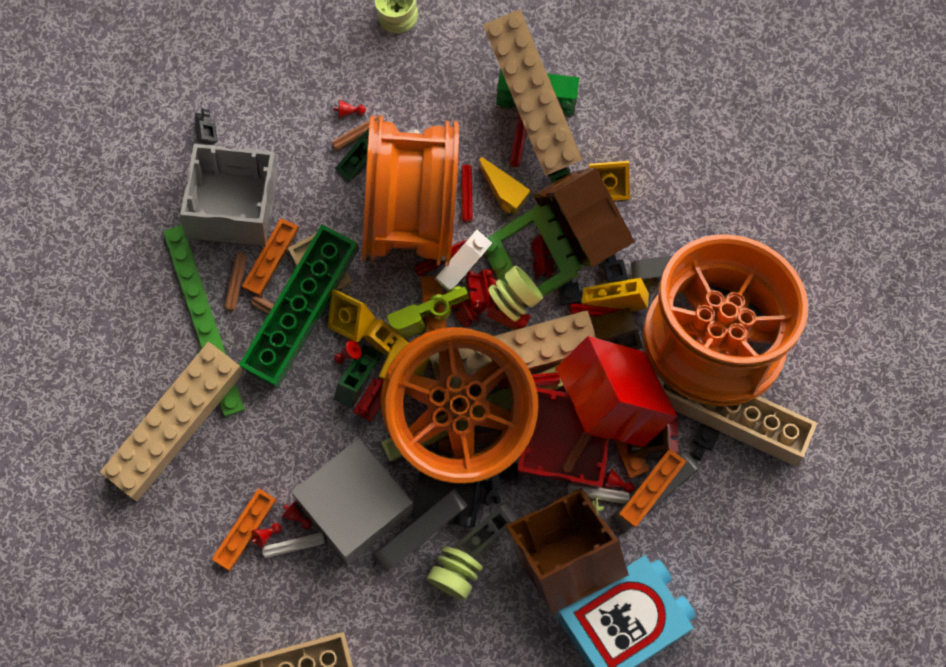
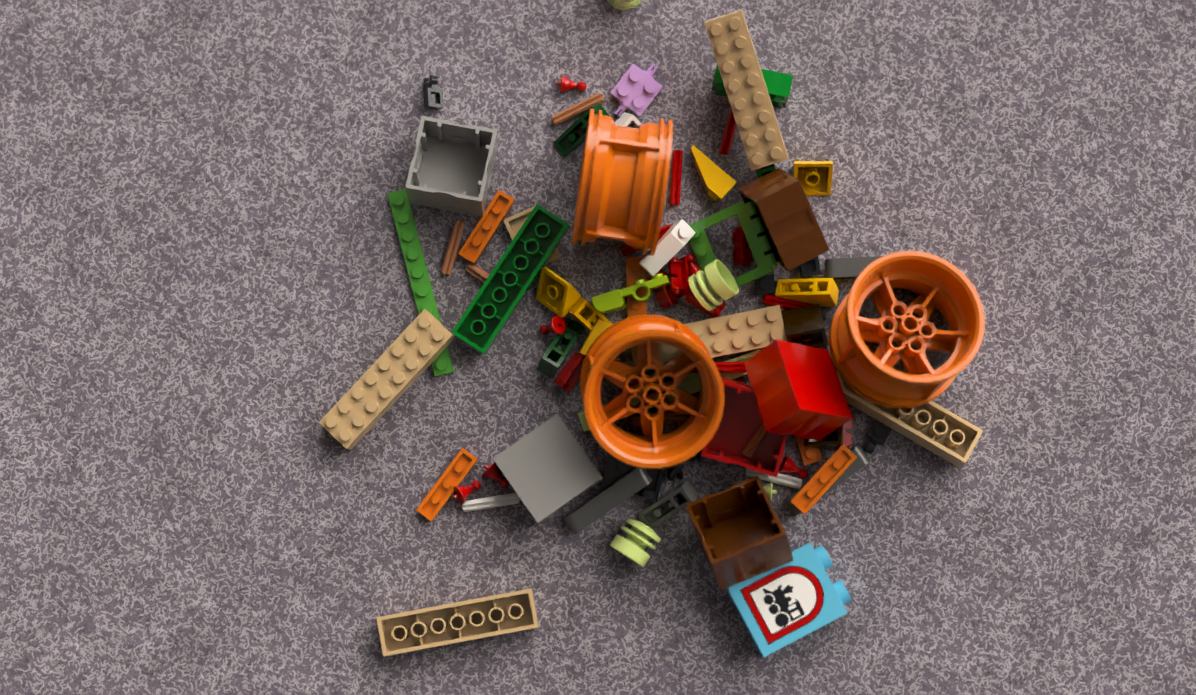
camera: 10 degrees right, 10 degrees up
(418, 108) = (636, 90): none -> lavender plate

